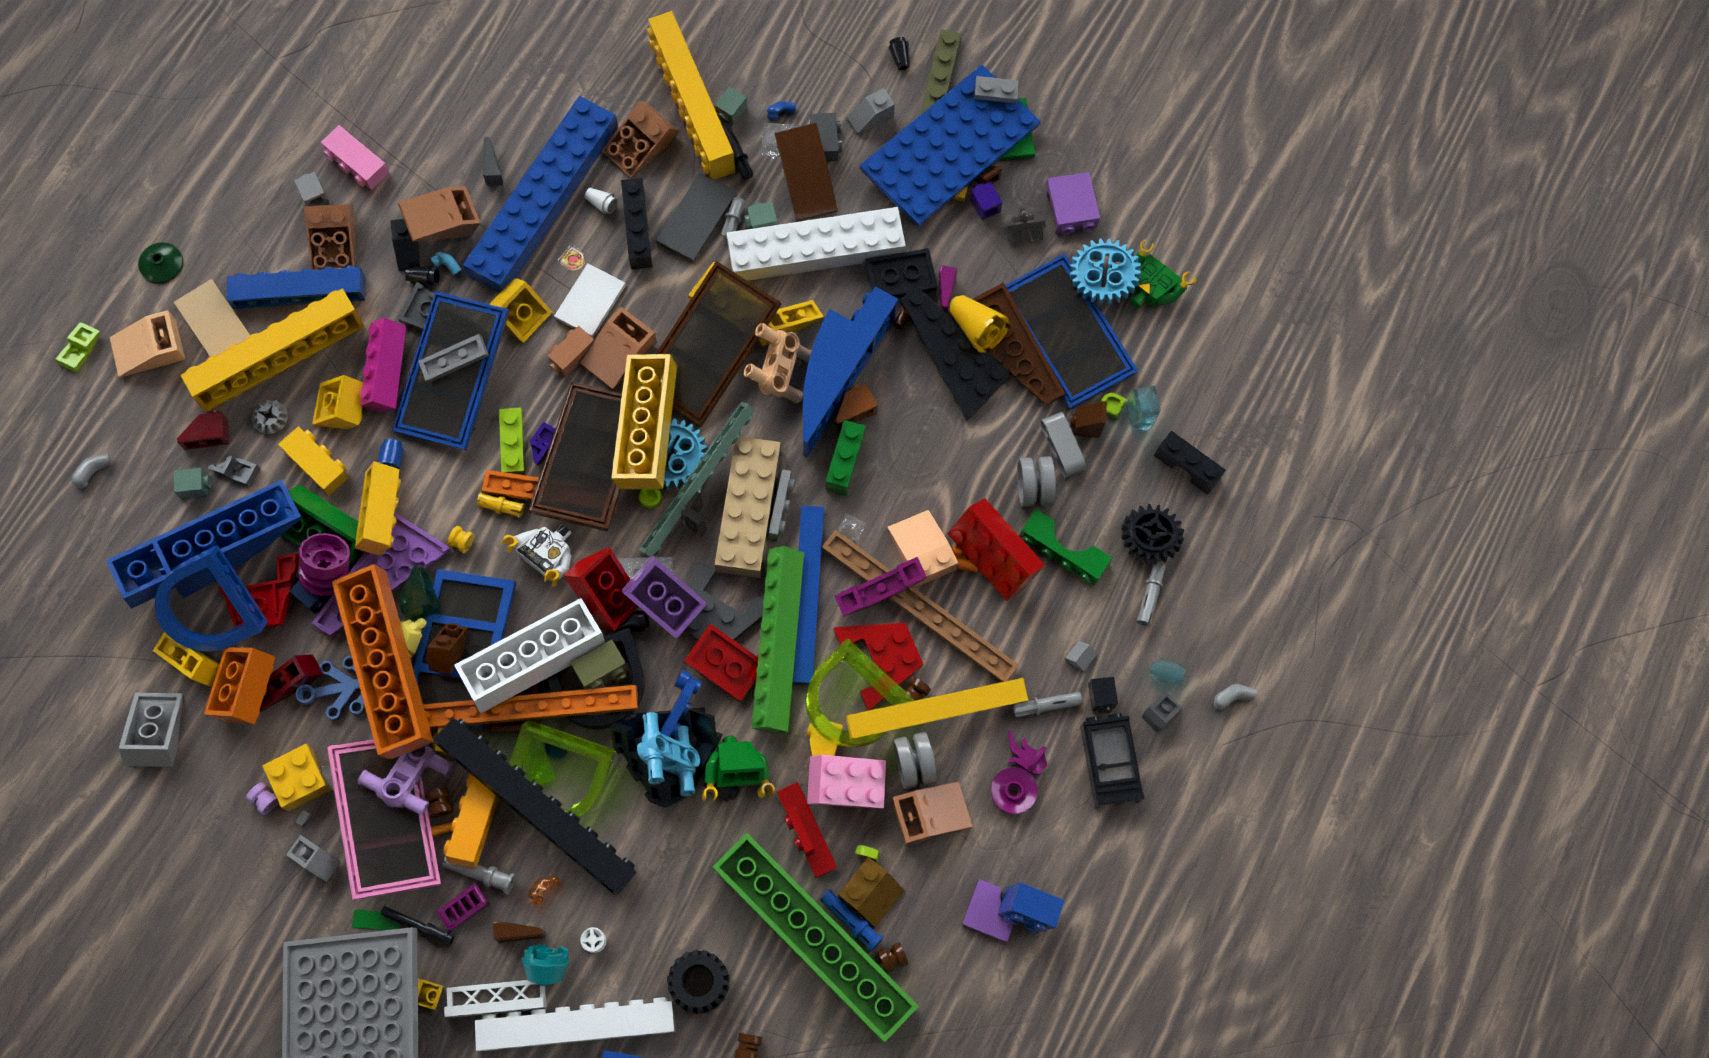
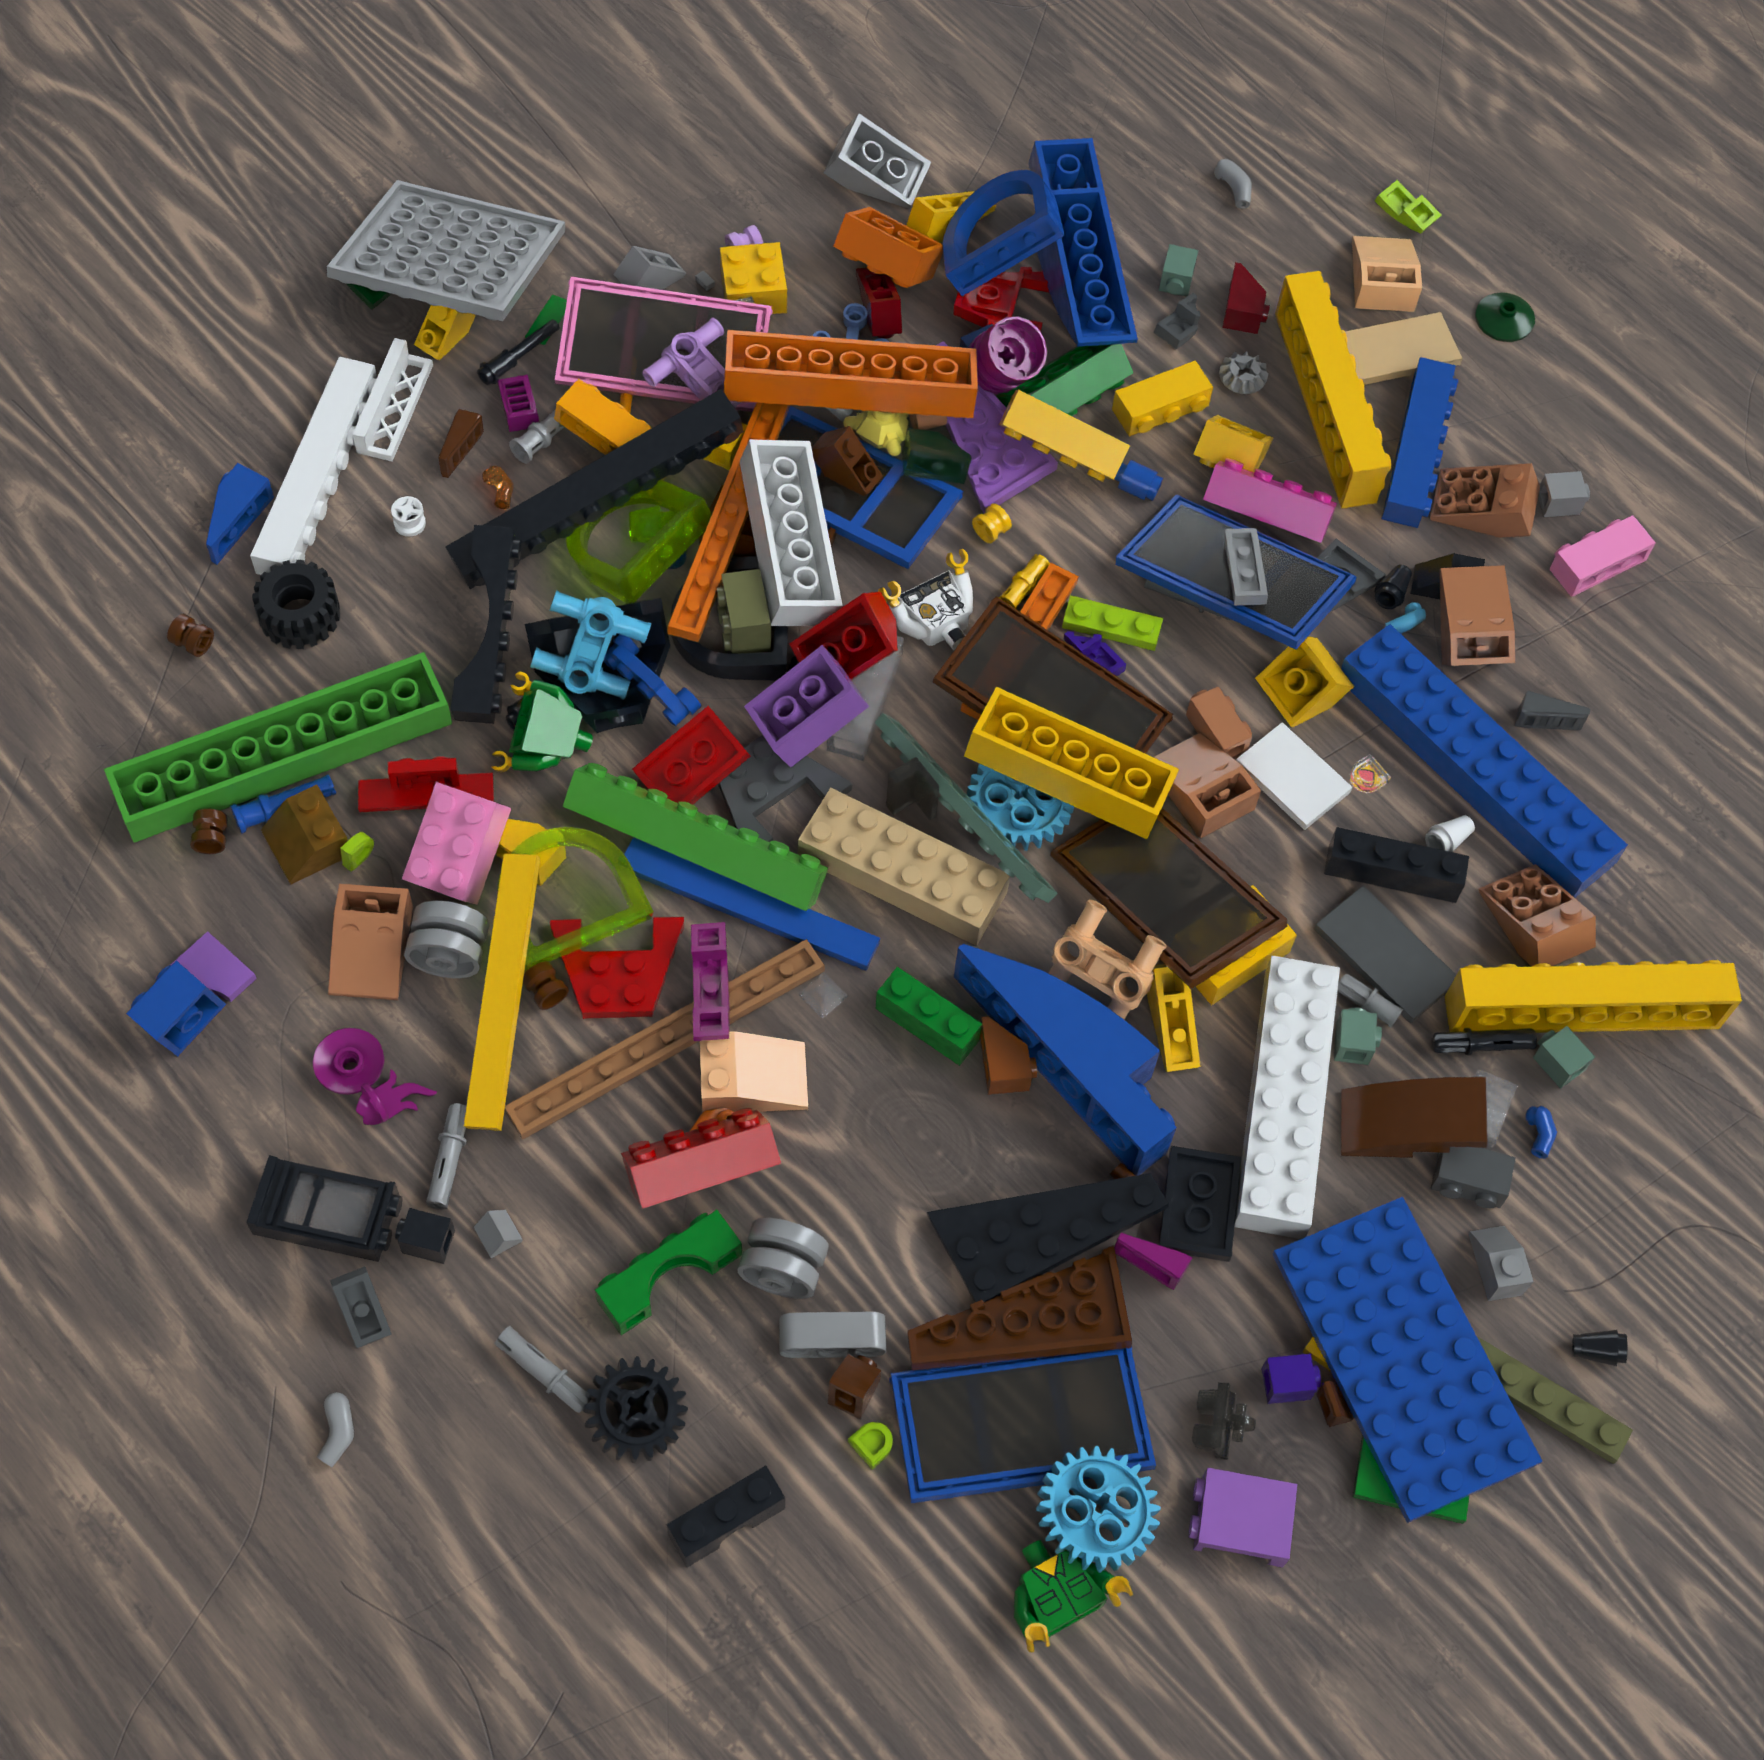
camera: 110 degrees right, 10 degrees down
(438, 802) = (656, 407): reddish brown wheel -> none
(545, 964) = (403, 452): teal cone -> none
(650, 498) = (961, 764): lime tile -> none
(720, 826) = (476, 687): none -> black arch
(781, 505) = (890, 909): light grey plate -> none
(979, 323) = (1071, 1269): yellow cone -> none
(996, 89) = (1483, 1458): light grey plate -> none
(1143, 408) = (839, 1471): clear light blue brick -> none
(1167, 671) = (416, 1342): clear light blue brick -> none

